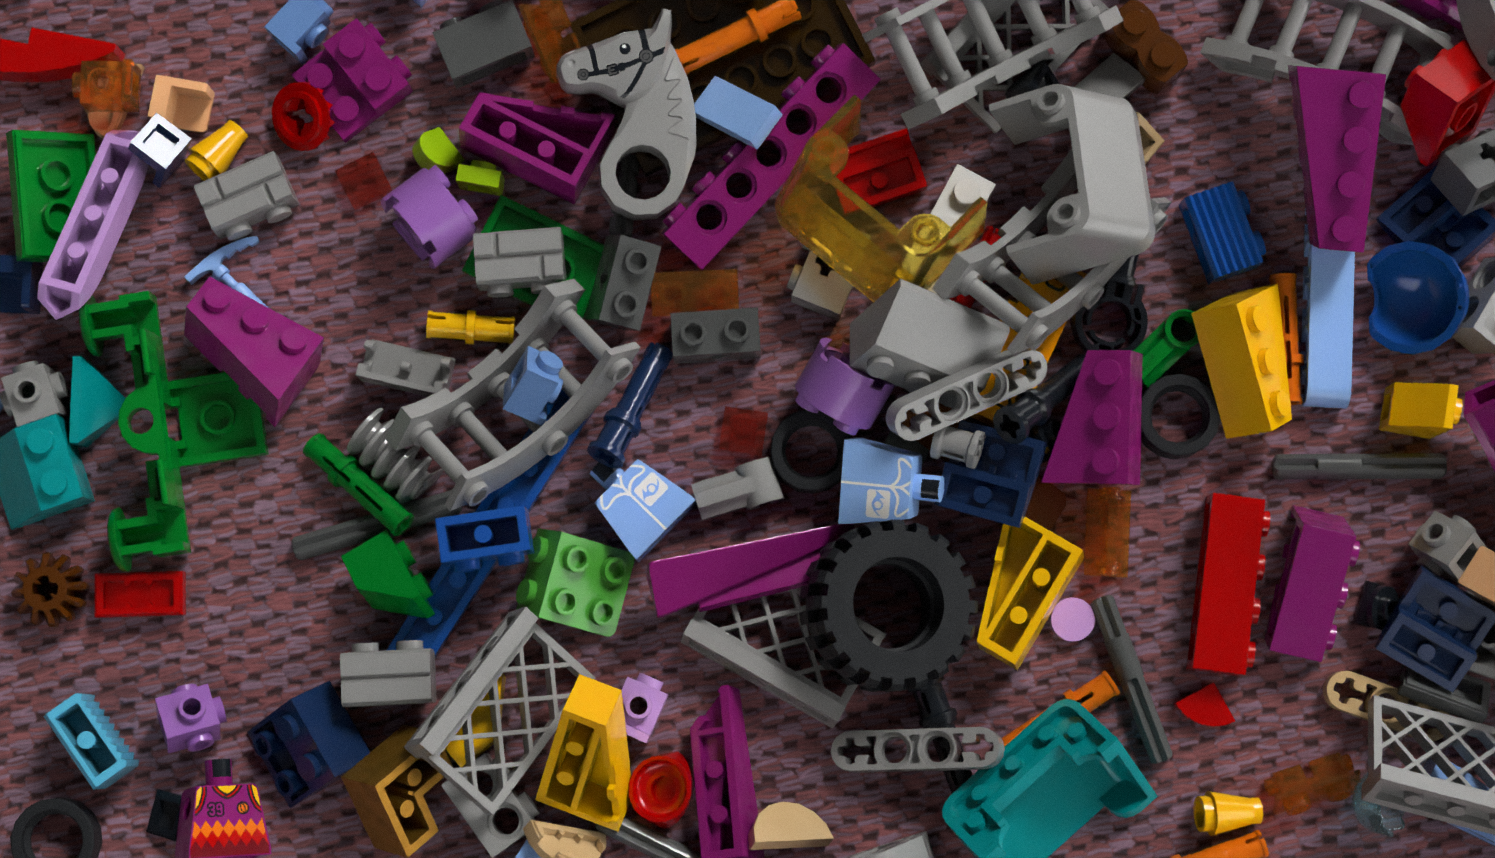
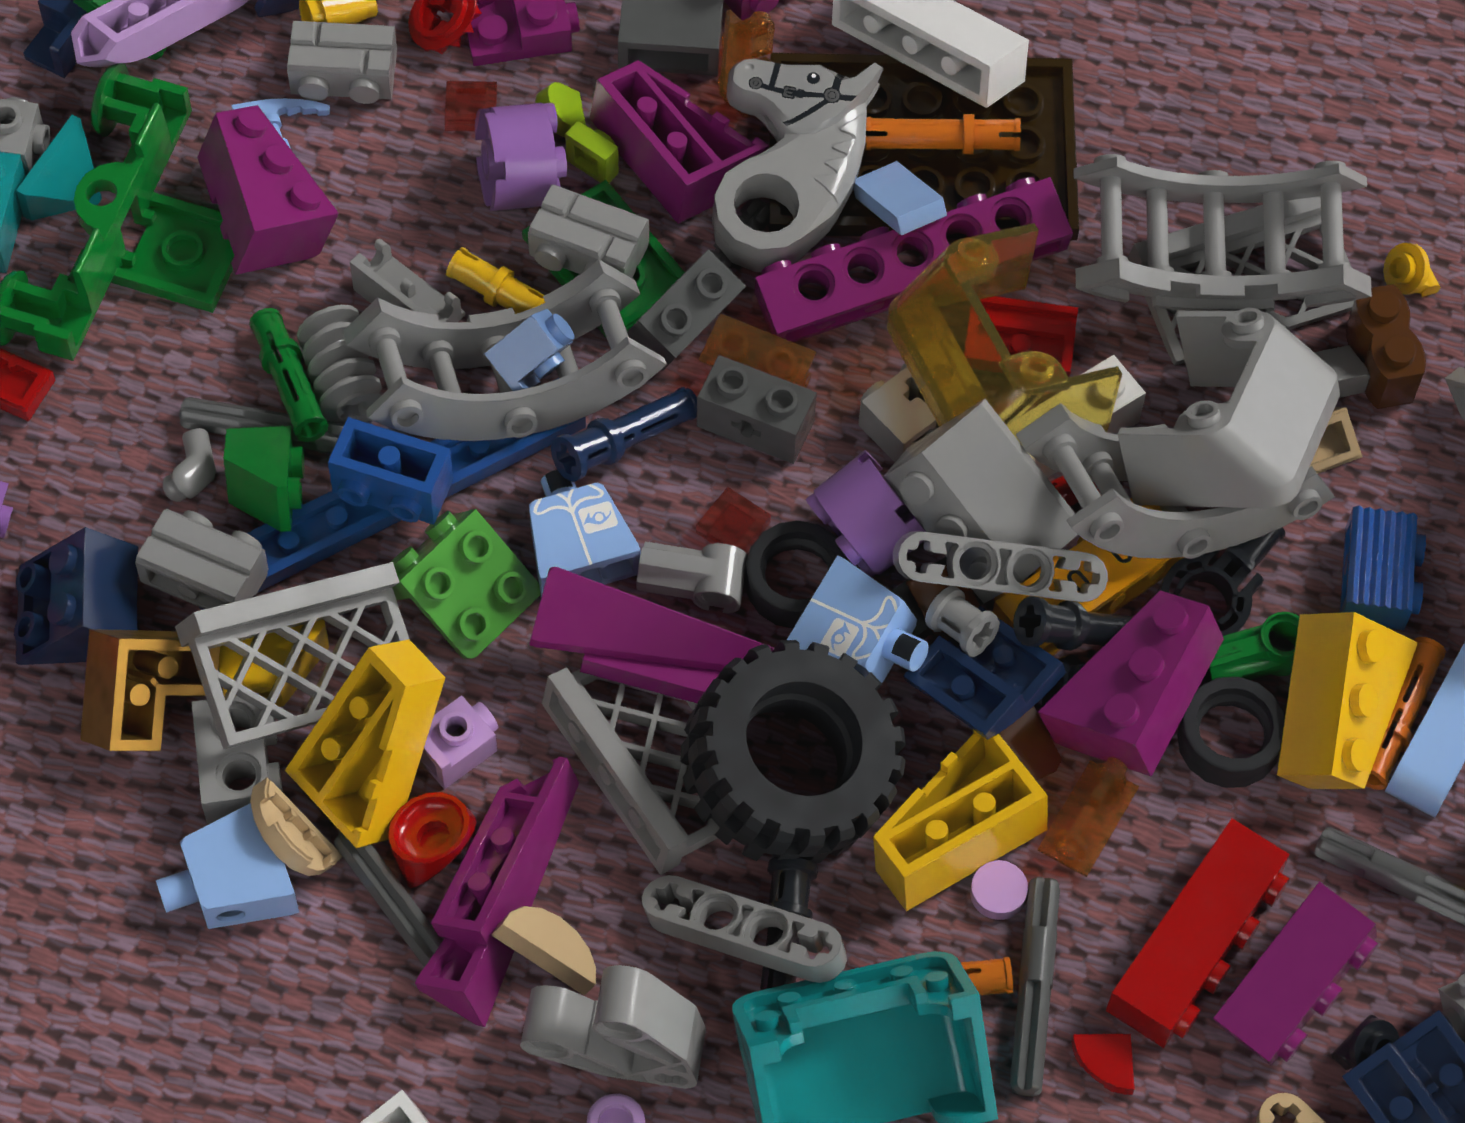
camera: 25 degrees right, 20 degrees down
(332, 593) = (195, 471): none -> light grey arm

